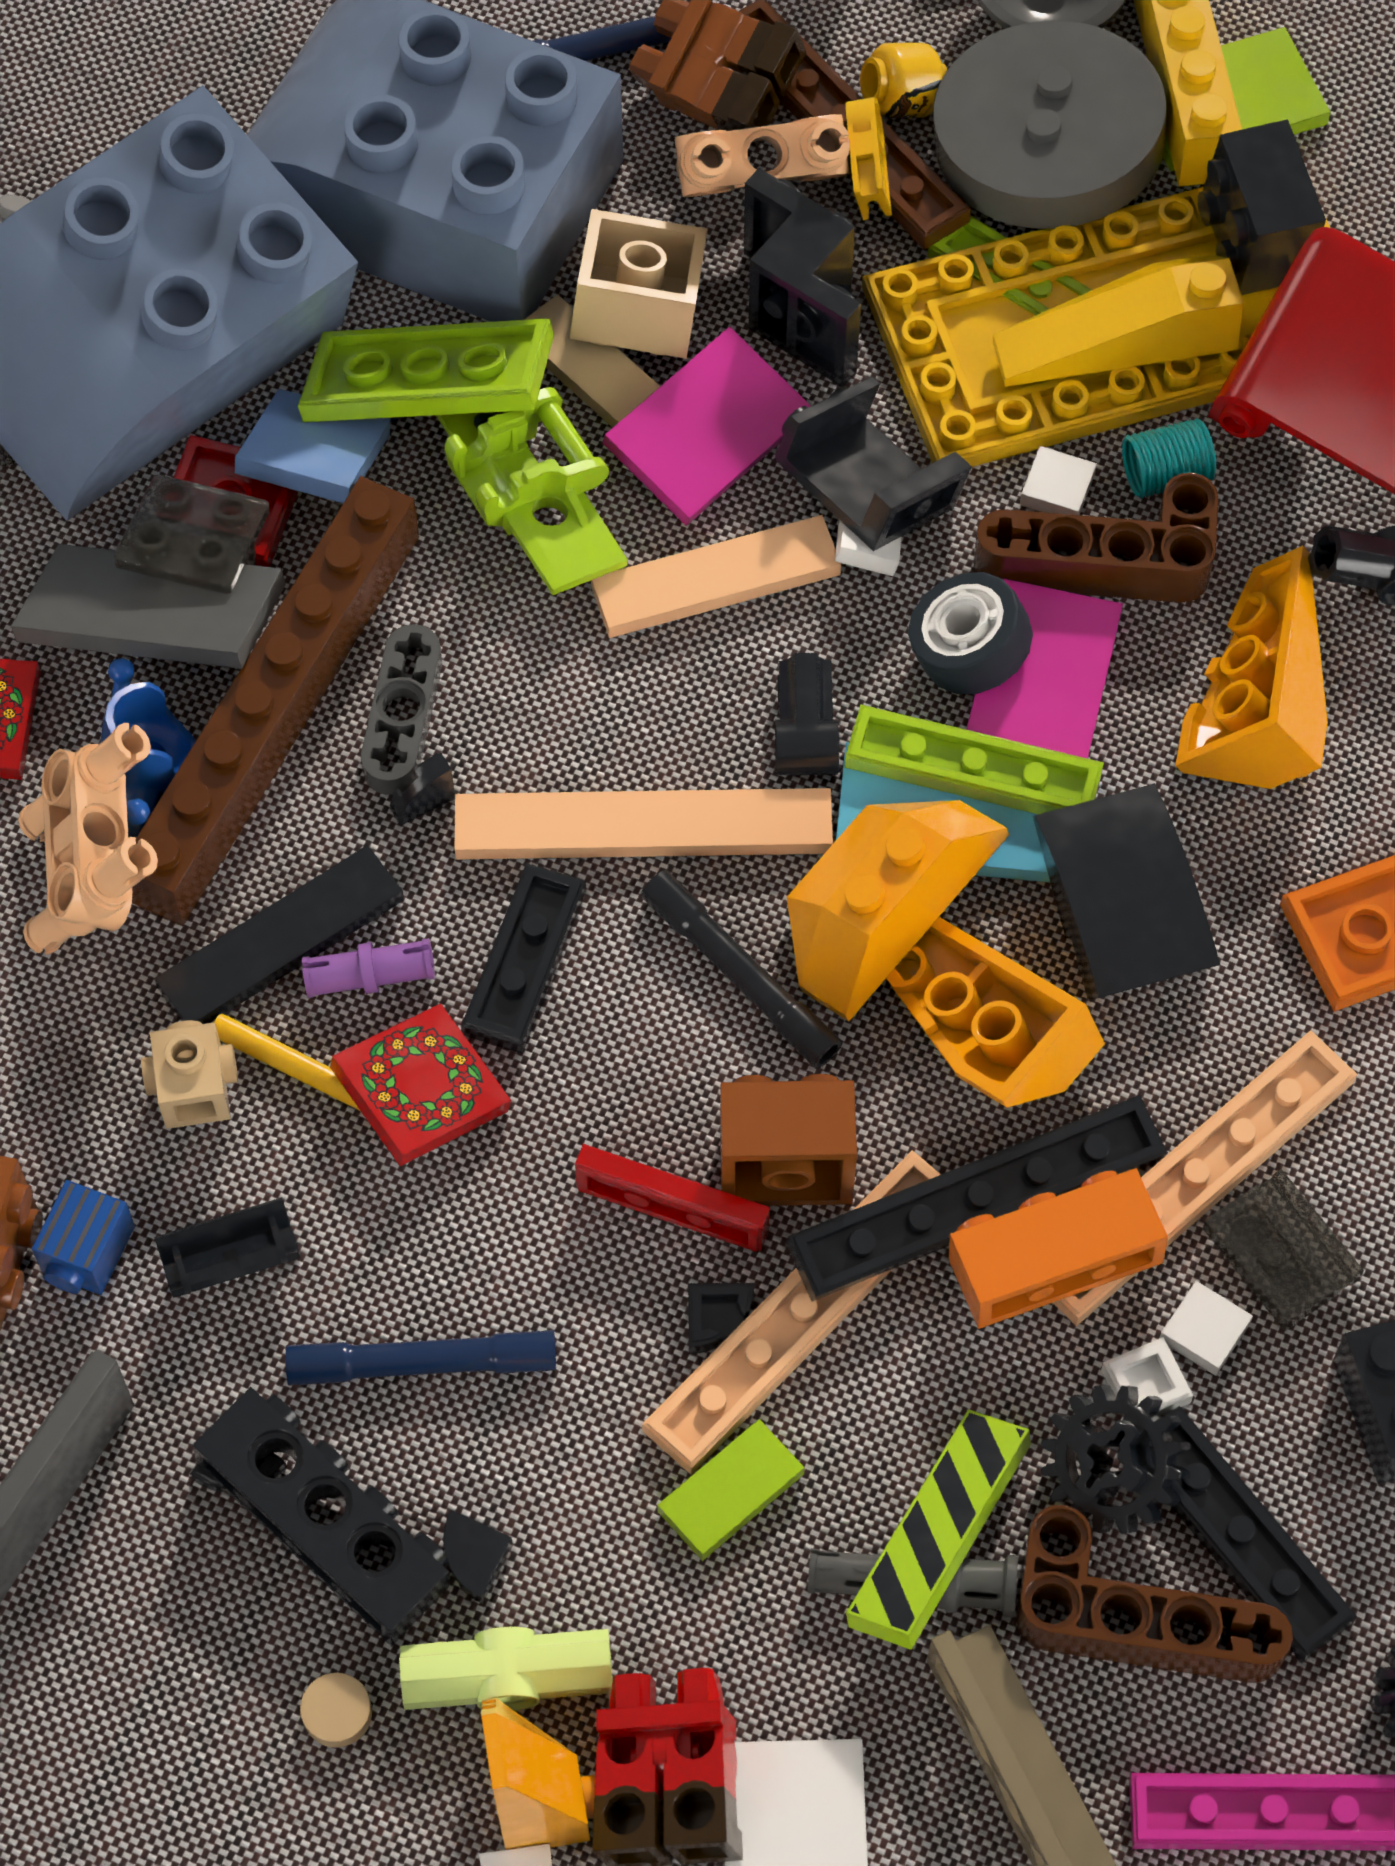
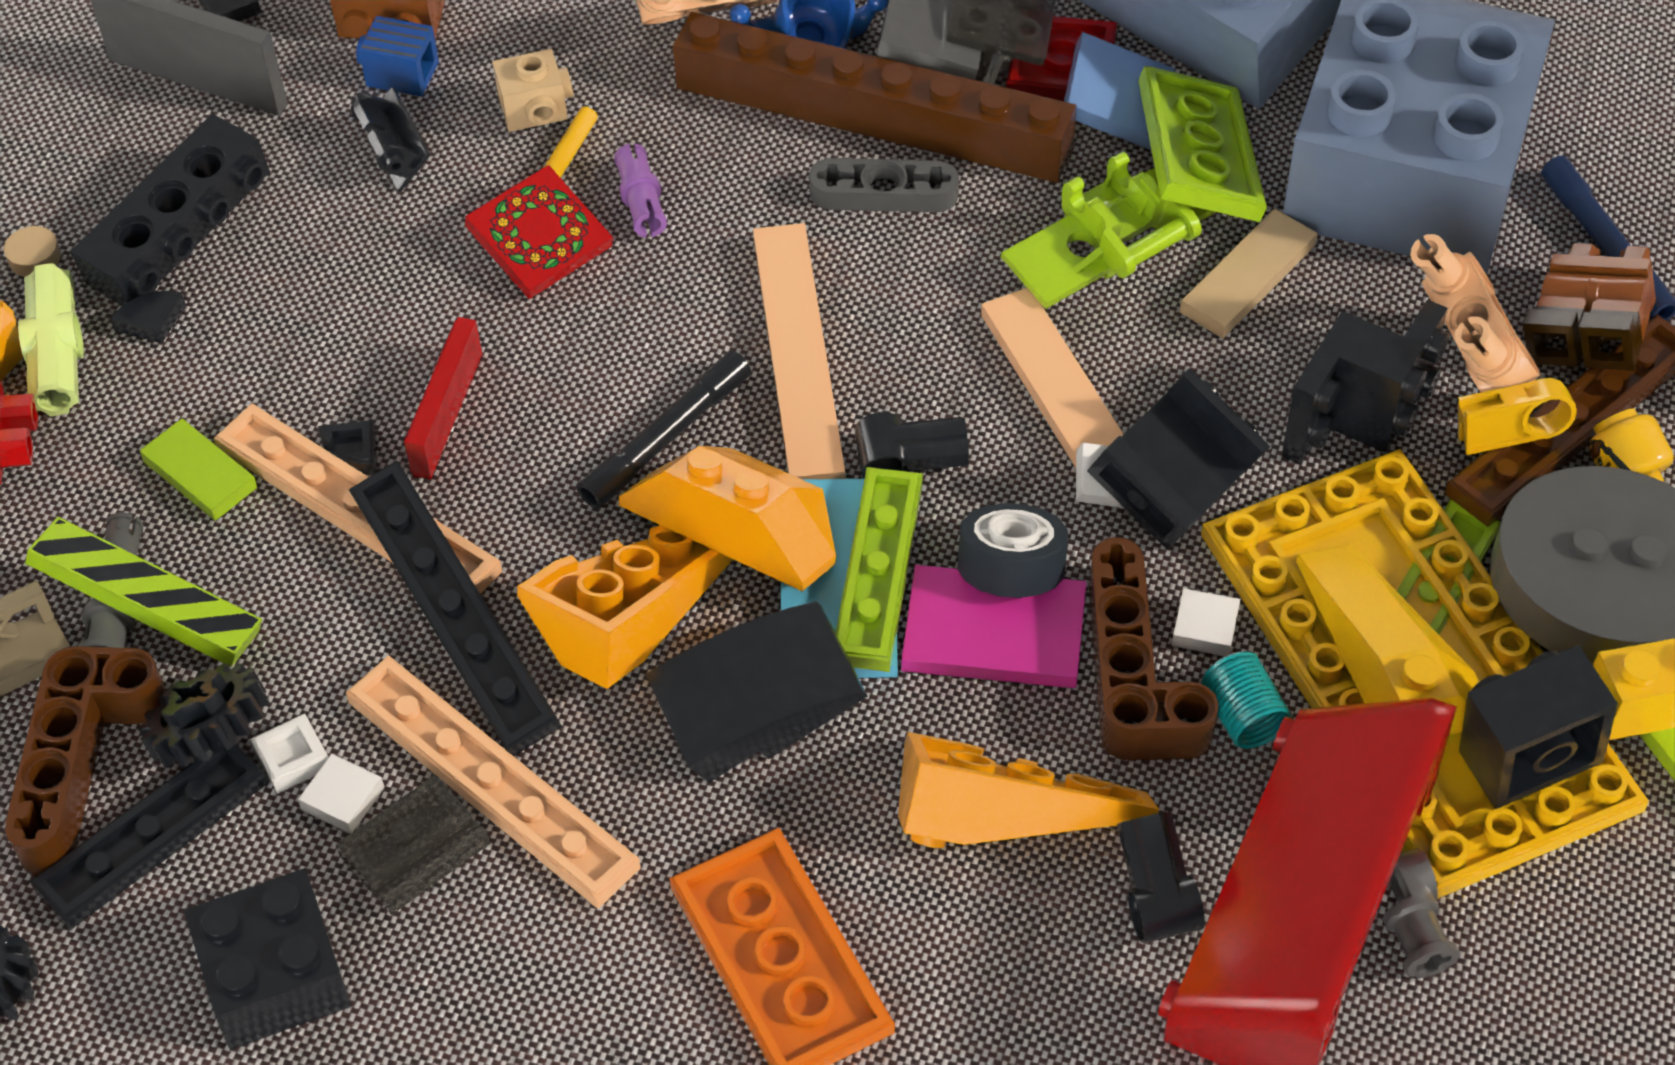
camera: 85 degrees right, 10 degrees down
(279, 937) = (667, 139): black tile -> none
(343, 1361) = (313, 310): dark blue piece -> none
(429, 791) = (807, 205): black tile -> none
(523, 958) = (665, 290): black tile -> none
(638, 283) = (1326, 264): tan brick -> none
(705, 426) = (1192, 328): dark pink tile -> none
(789, 1140) = (484, 451): dark orange brick -> none
(1056, 1246) = (397, 653): orange brick -> none

